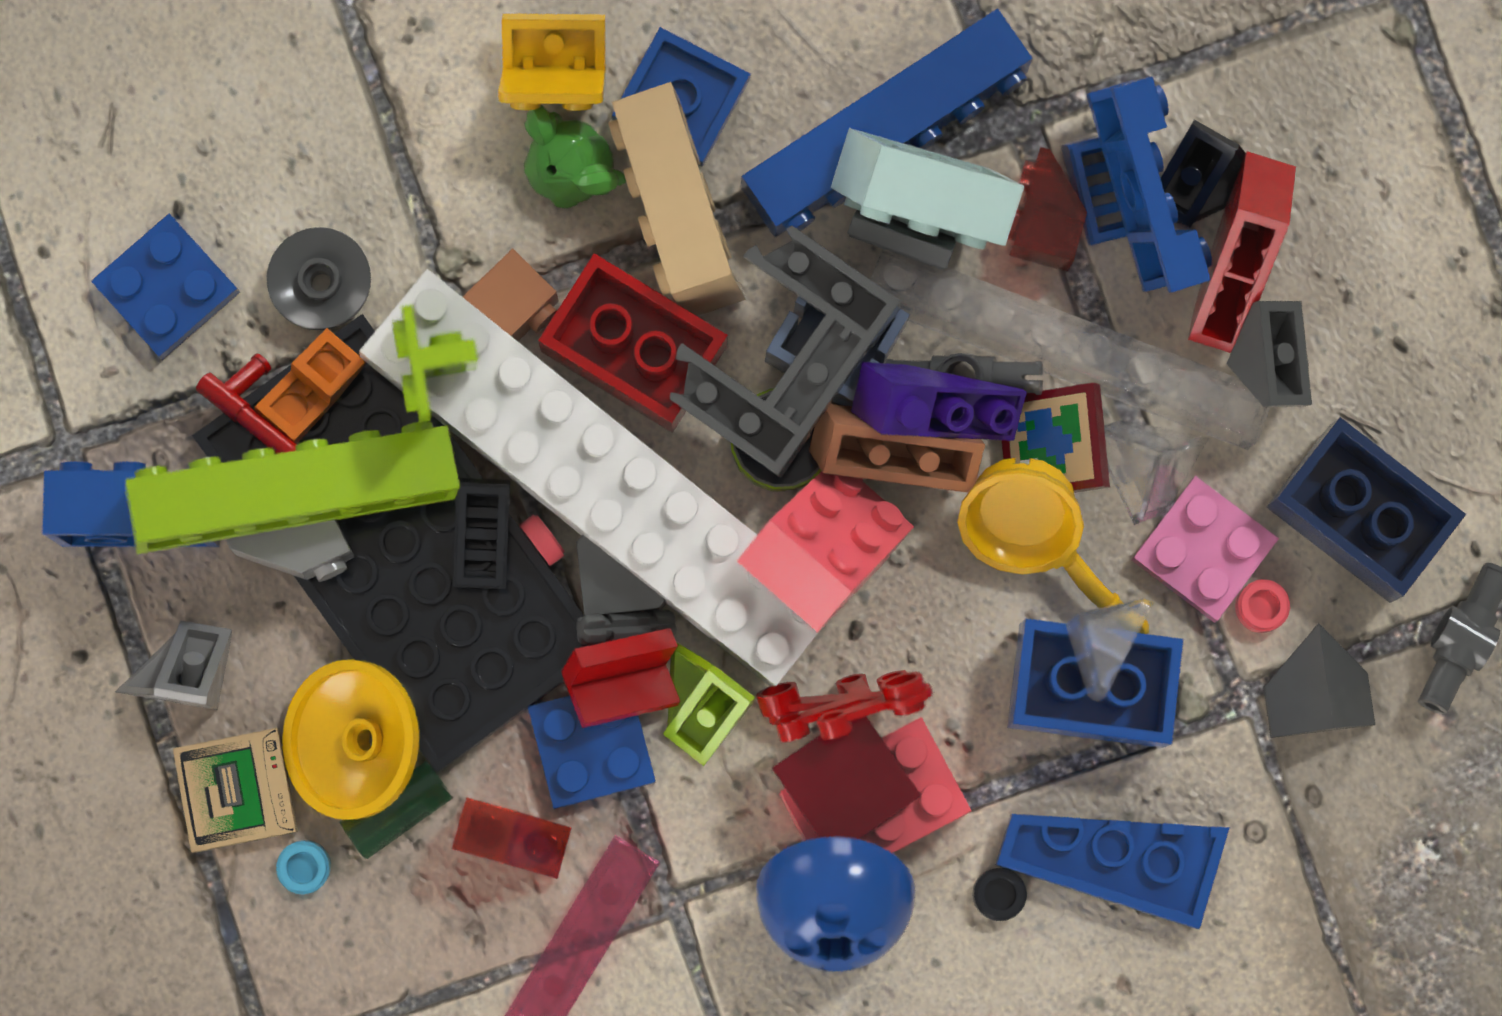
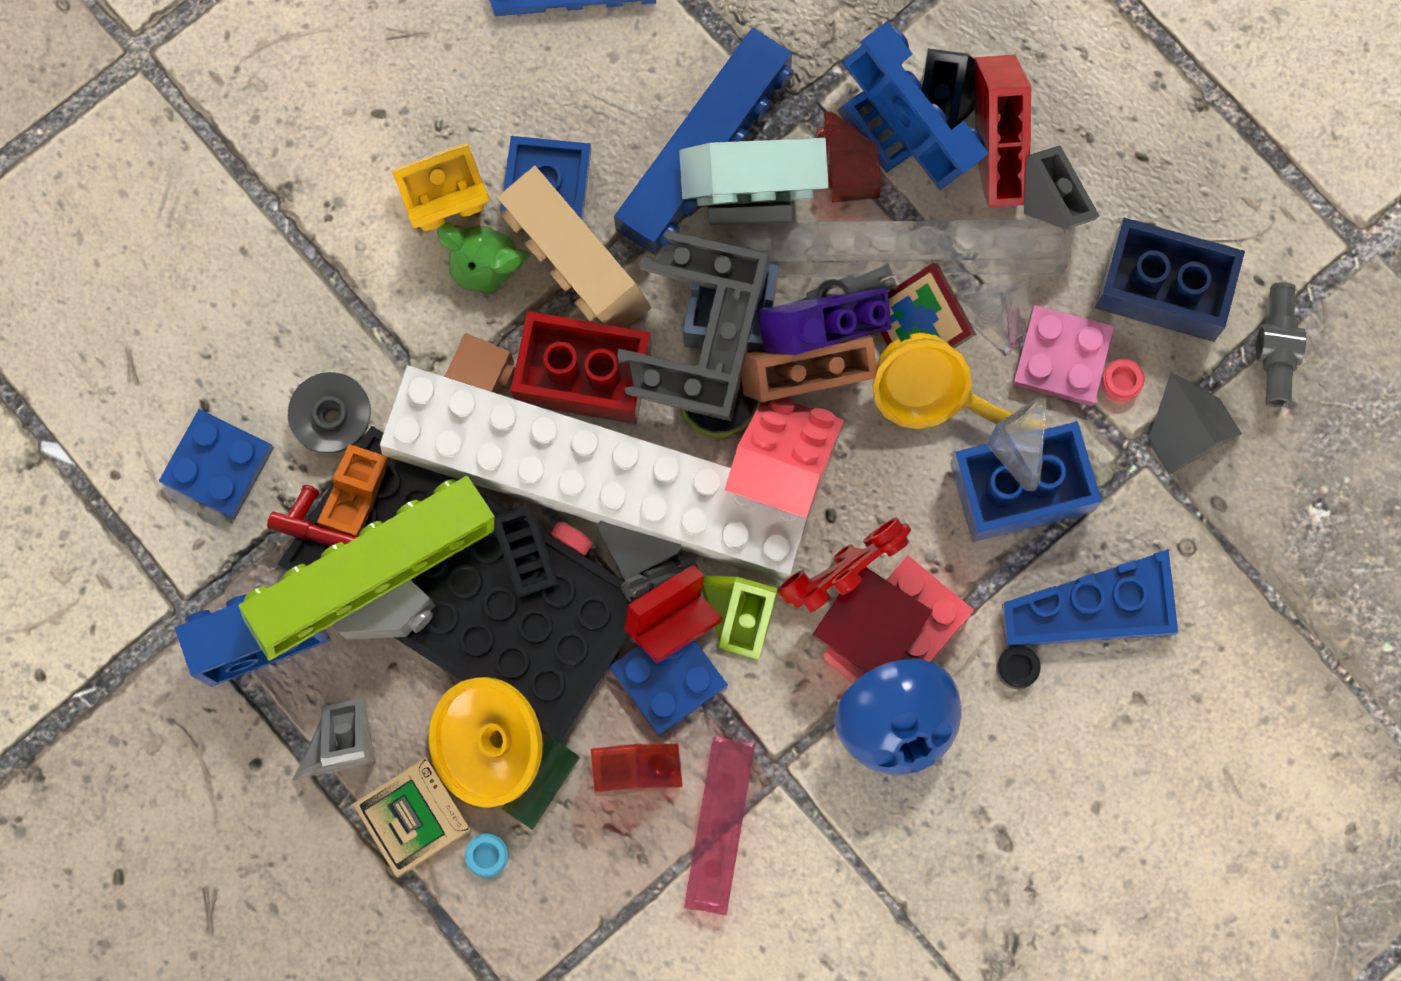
camera: 10 degrees left, 5 degrees down
(443, 356) = (445, 419): lime bracket -> none

